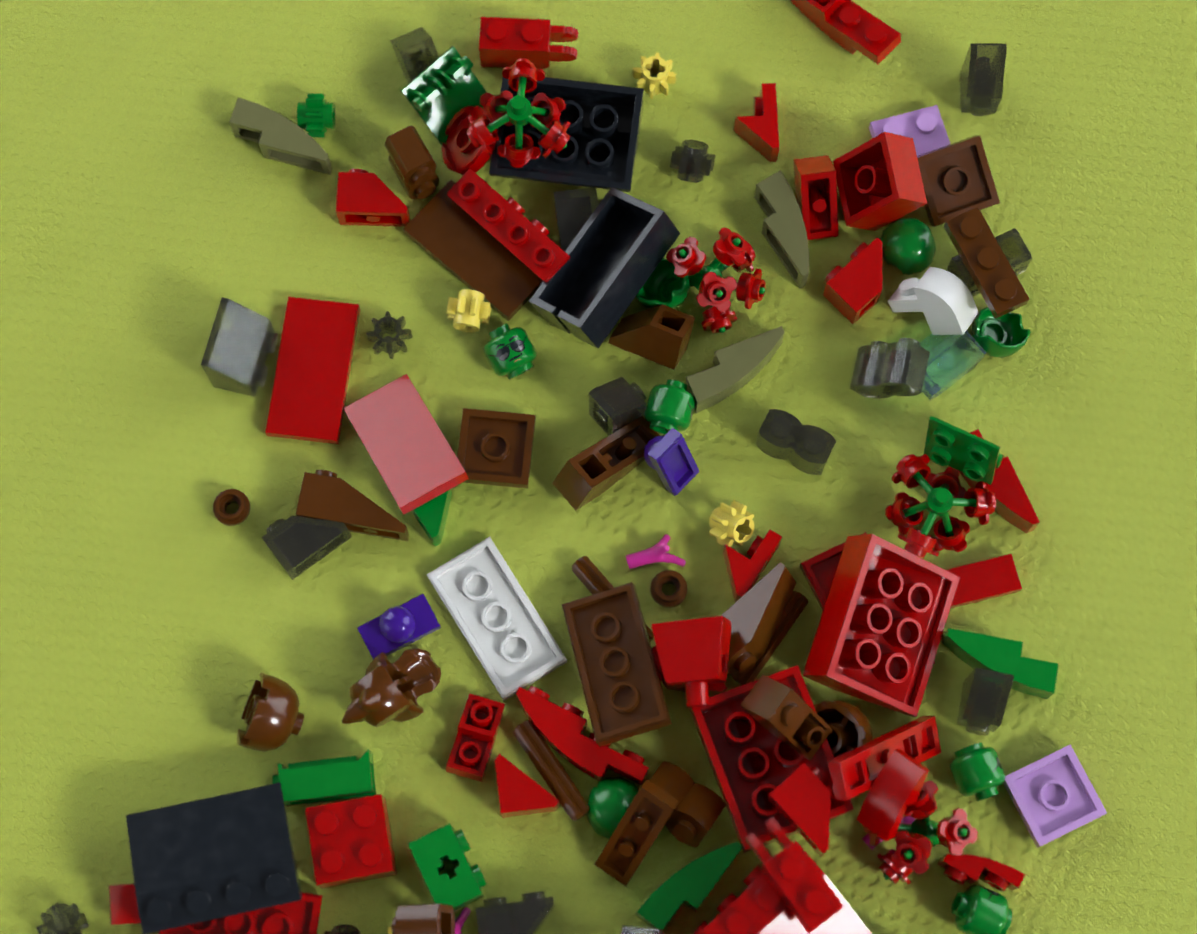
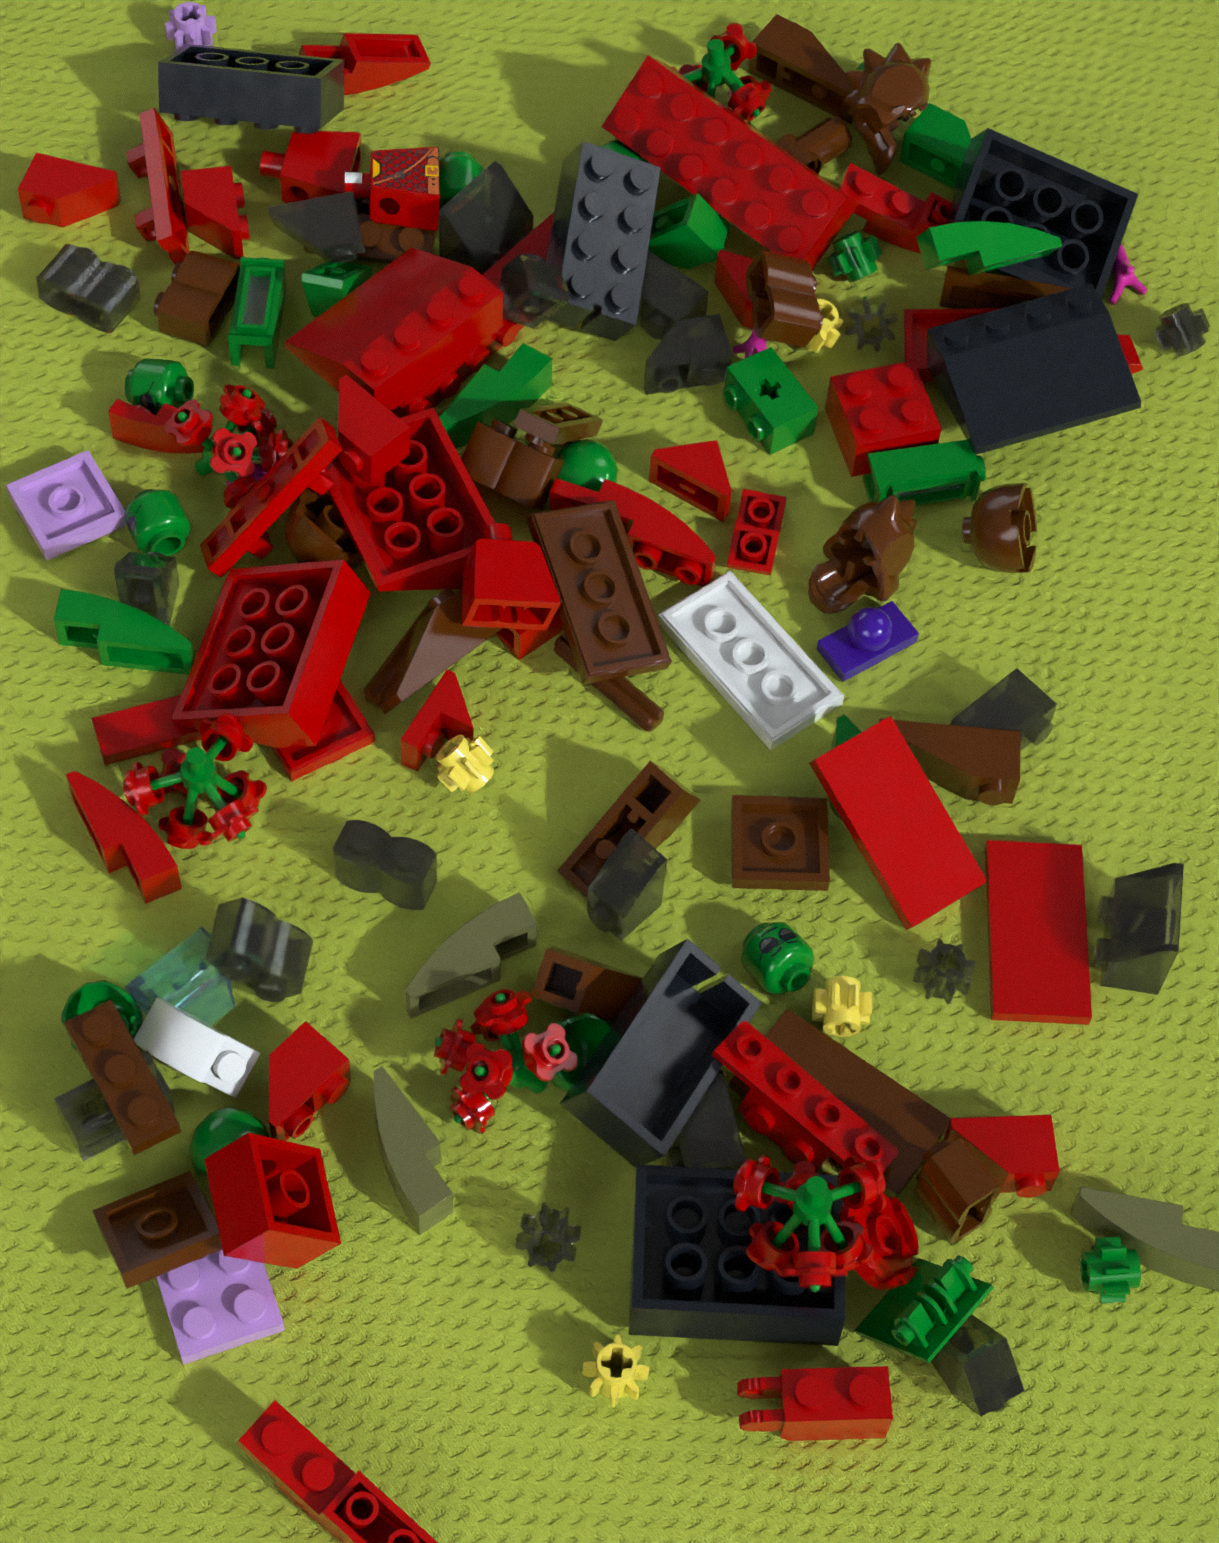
camera: 170 degrees right, 15 degrees down
(224, 499) = (1108, 749): reddish brown plate -> none
(551, 770) = (652, 487): reddish brown axle -> none
(654, 555) = (561, 736): dark pink bar -> none
(668, 577) = (539, 687): reddish brown plate -> none
(669, 407) = (556, 897): green head -> none
(671, 460) = (557, 829): dark purple tile -> none
(762, 129) = (448, 1294): red slope -> none
(786, 716) = (392, 515): reddish brown slope -> none
(796, 879) = (375, 328): red hinge -> none
(817, 195) = (364, 1203): red slope -> none
(891, 793) = (263, 441): red slope -> none
(962, 451) = (187, 825): green hinge -> none
(982, 78) = (111, 1386): clear smoke slope -> none

